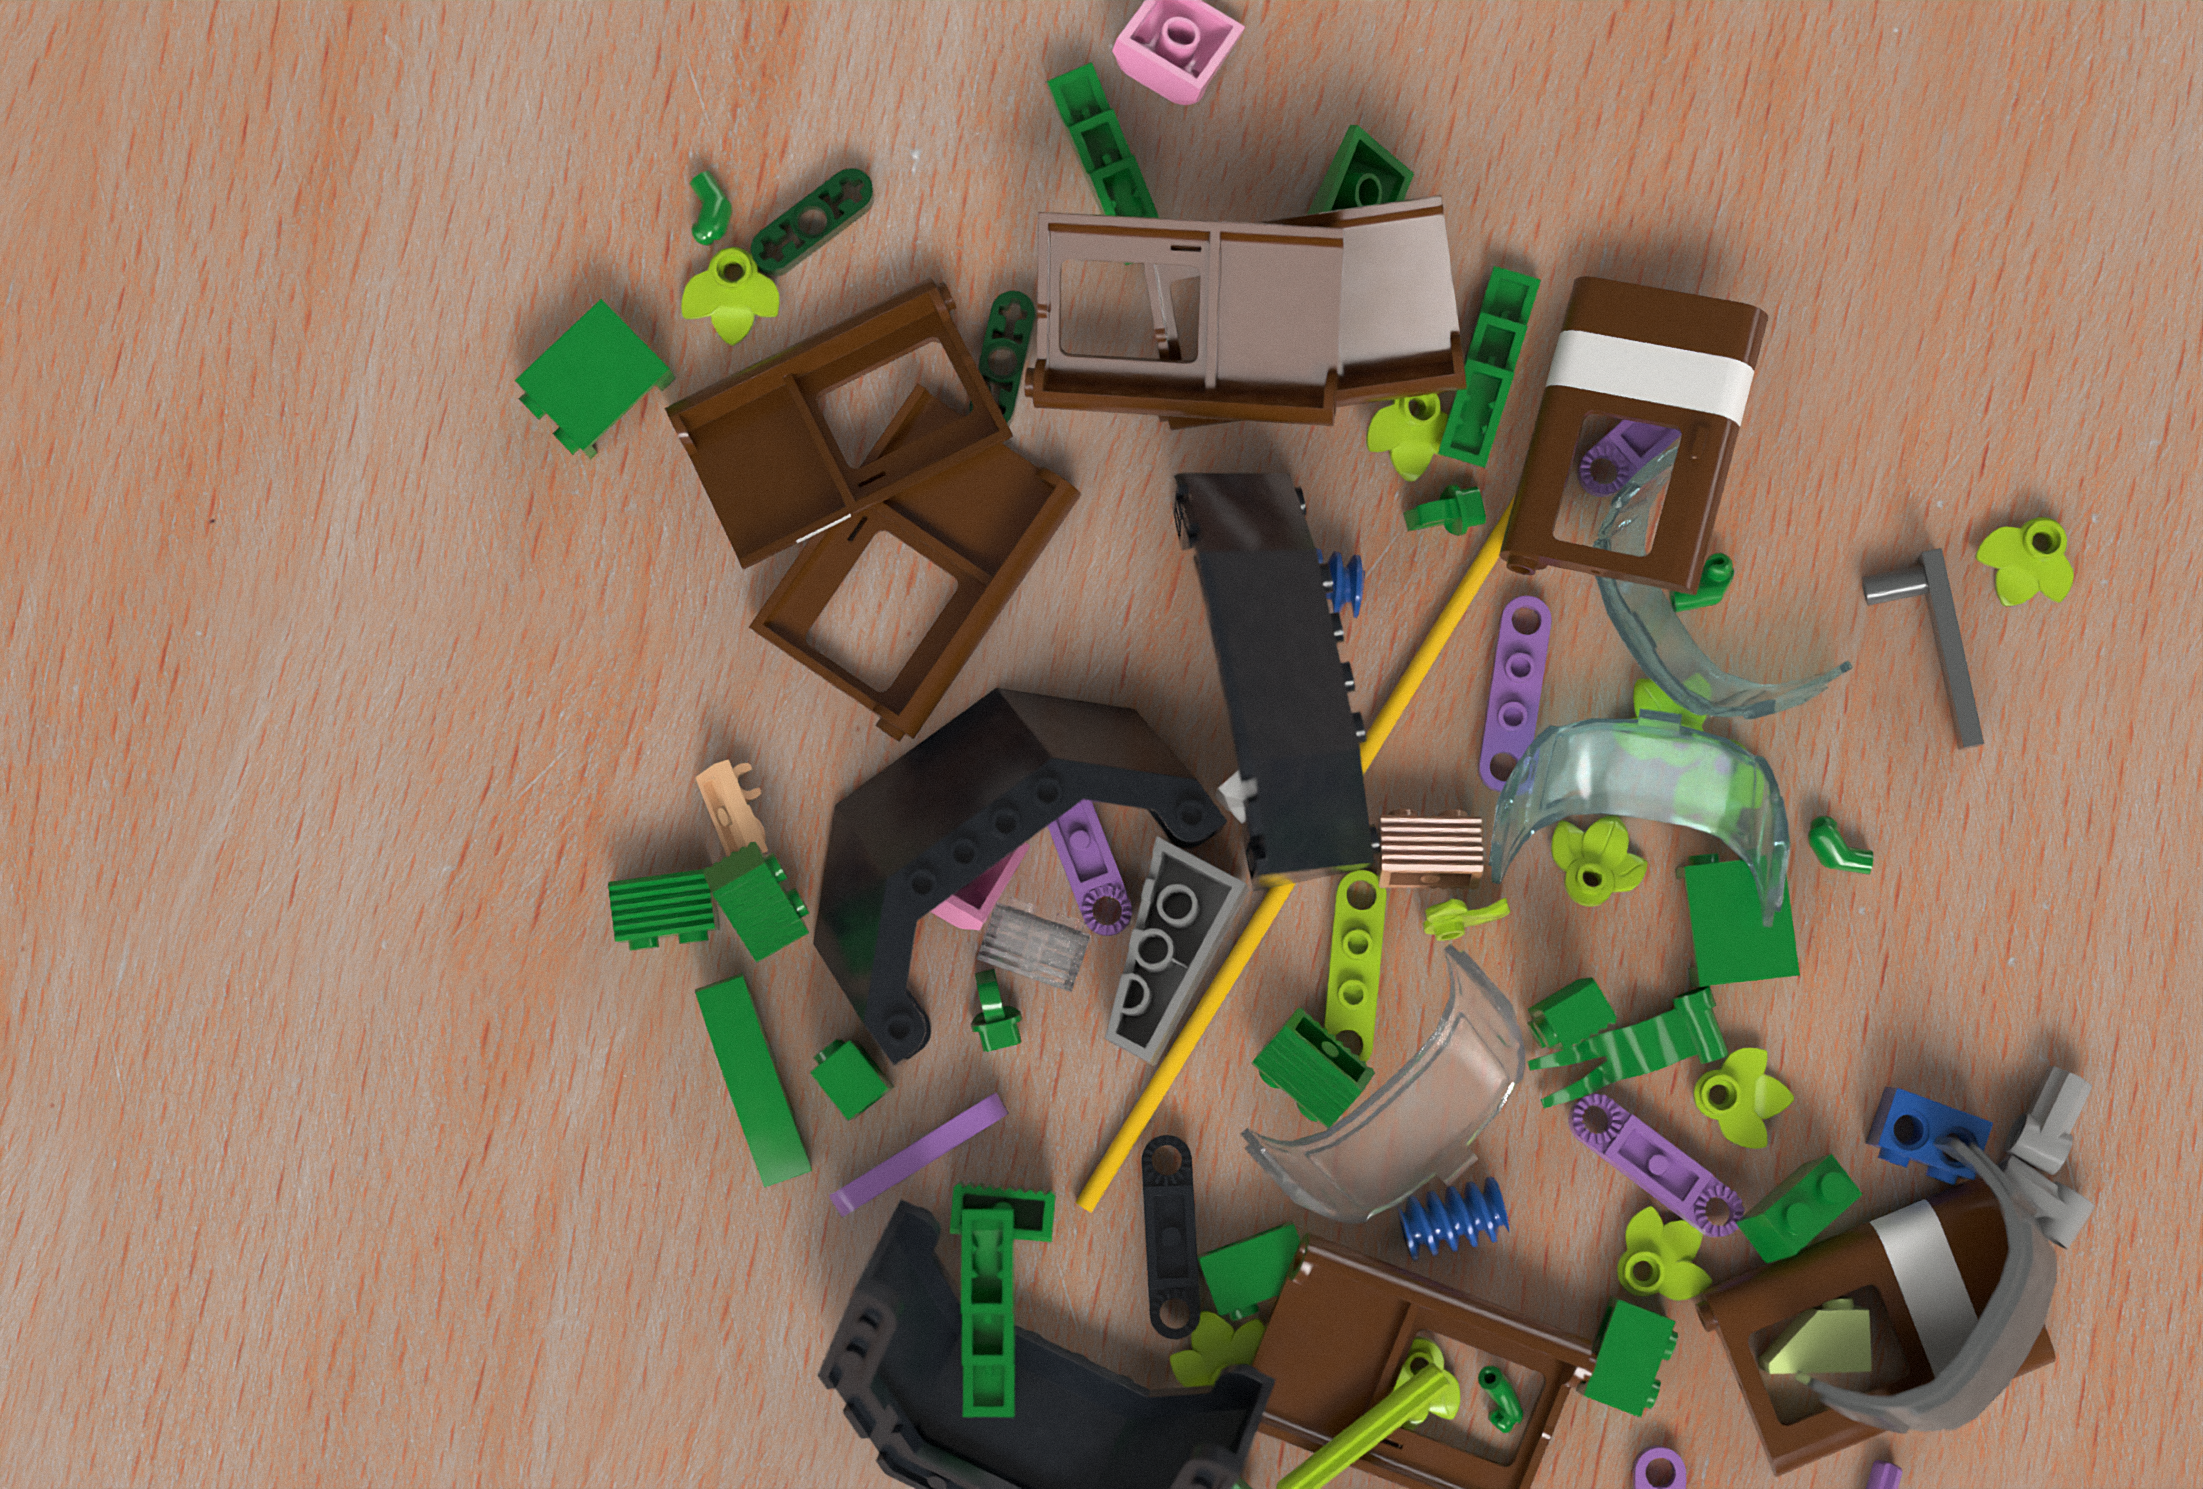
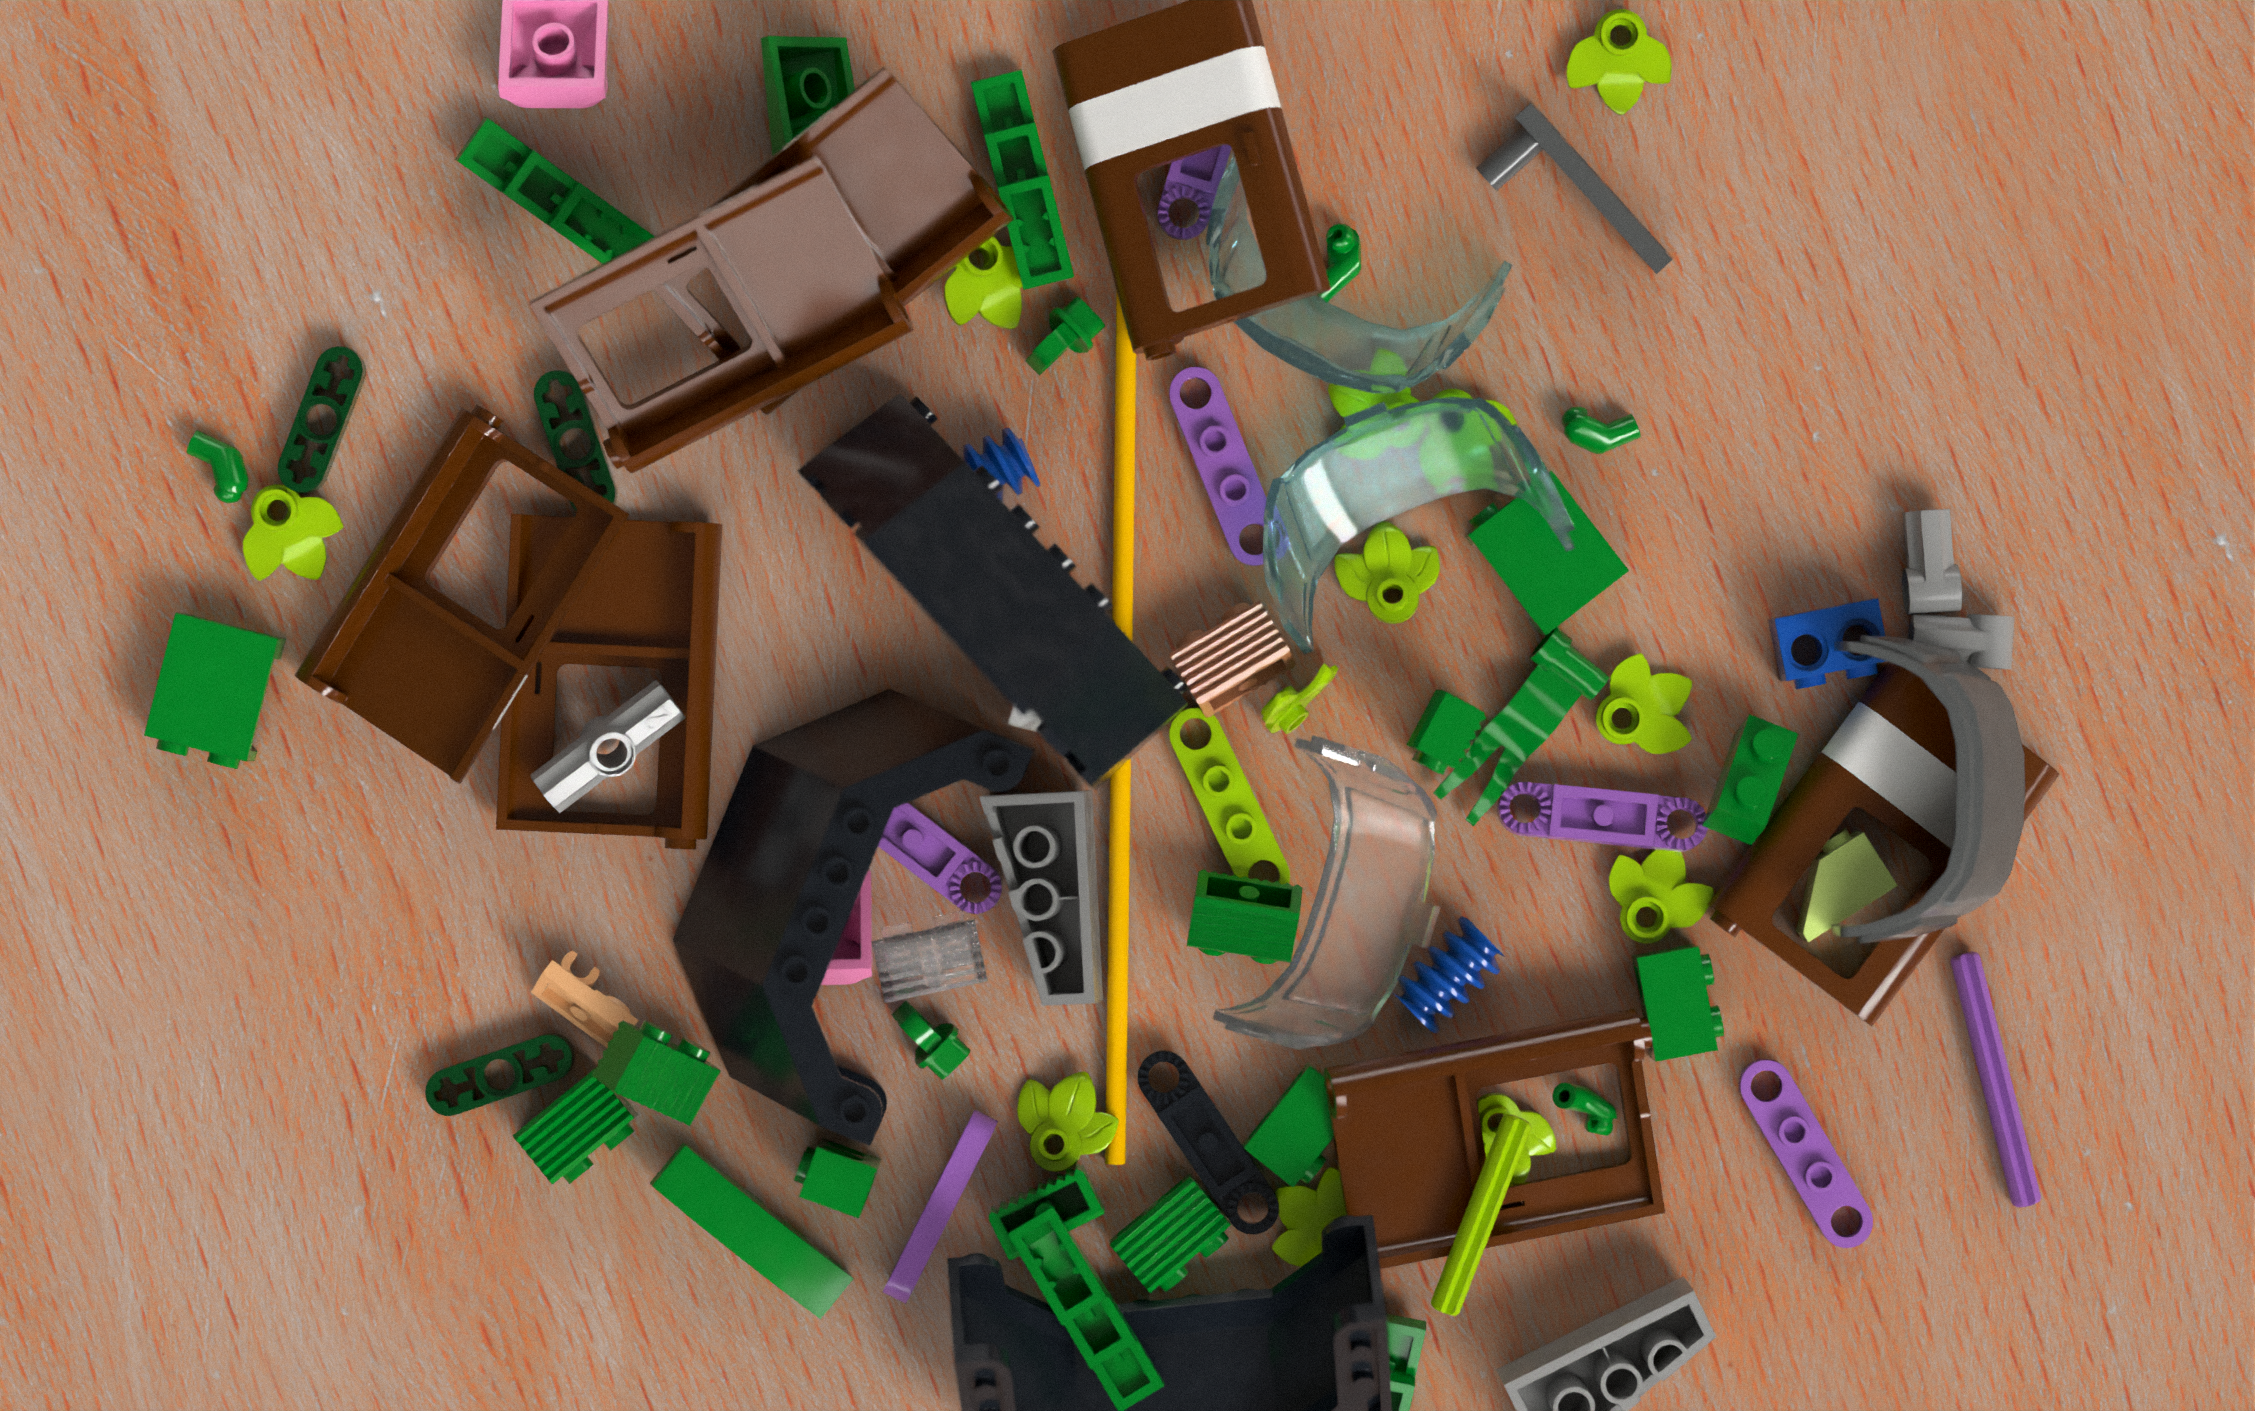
camera: 30 degrees left, 5 degrees up
(596, 807) = (467, 1099): none -> dark green beam
(847, 619) = (581, 768): none -> light grey piece
(1069, 1141) = (1065, 1113): none -> lime plate
(1094, 1294) = (1171, 1234): none -> green brick

